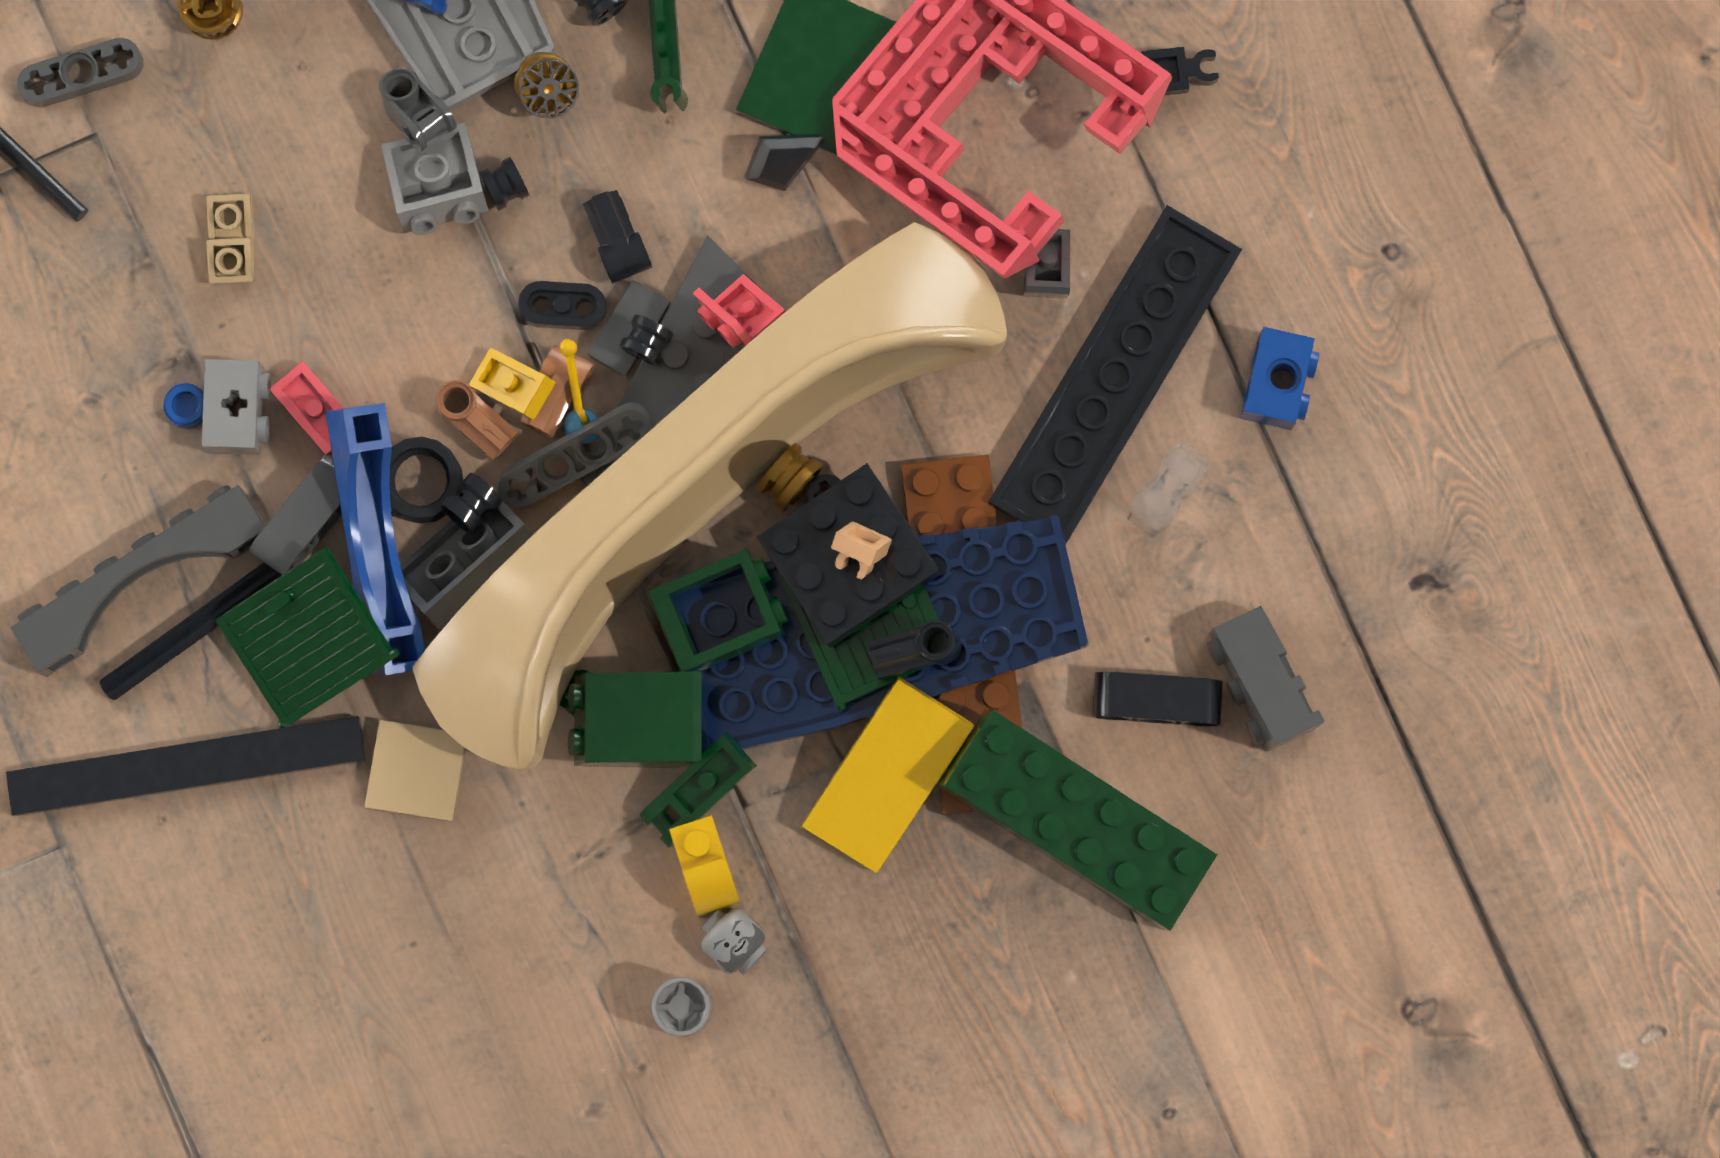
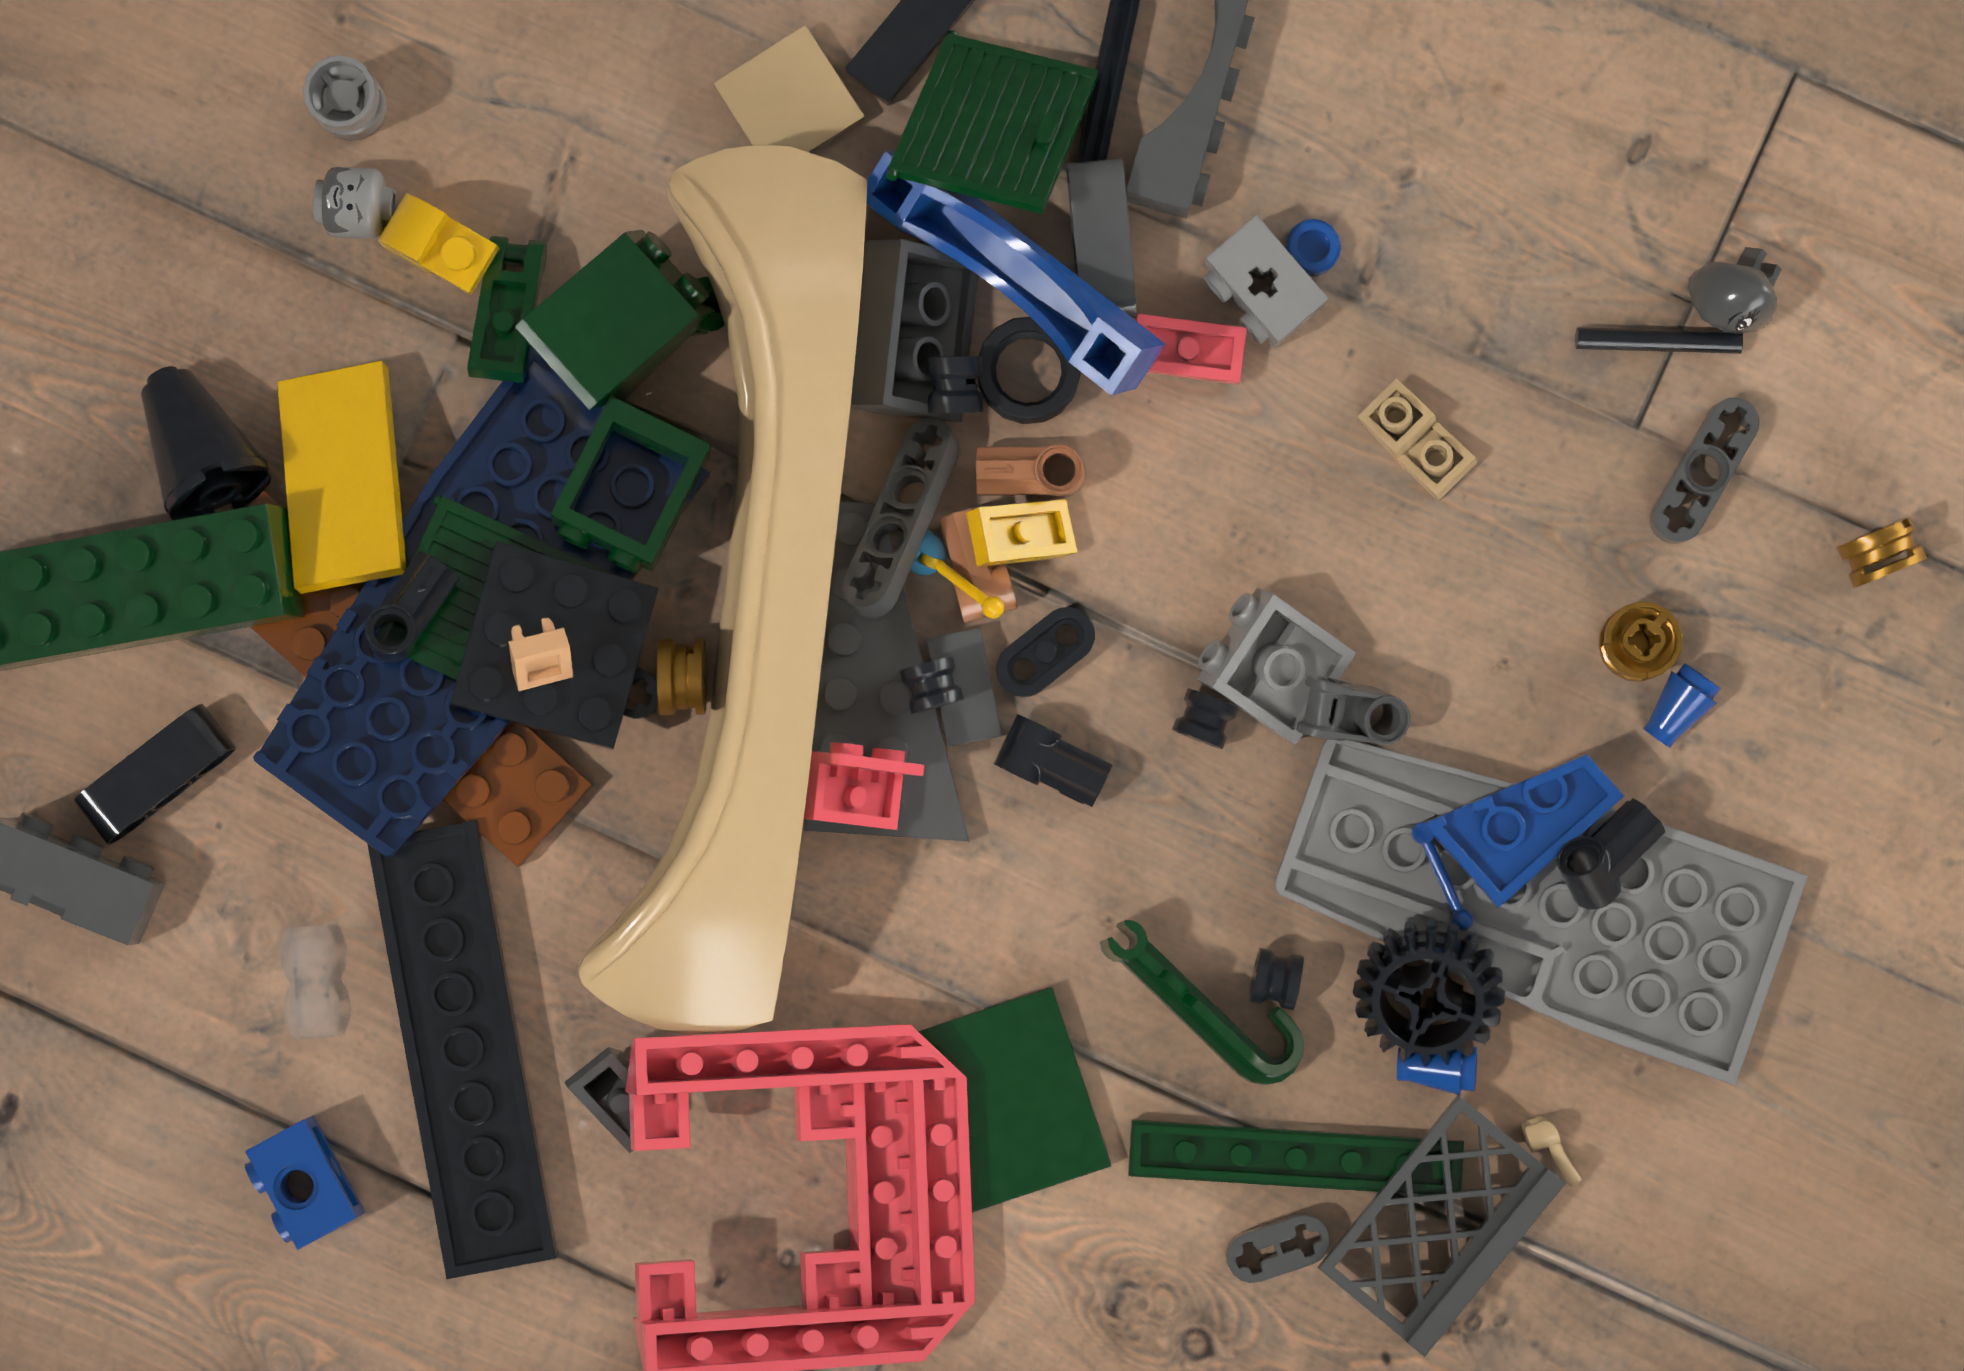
camera: 140 degrees right, 5 degrees up
(546, 84) = (1251, 848): wheel -> none
(781, 158) = (963, 977): black piece -> none
(959, 872) = (198, 448): none -> black cone

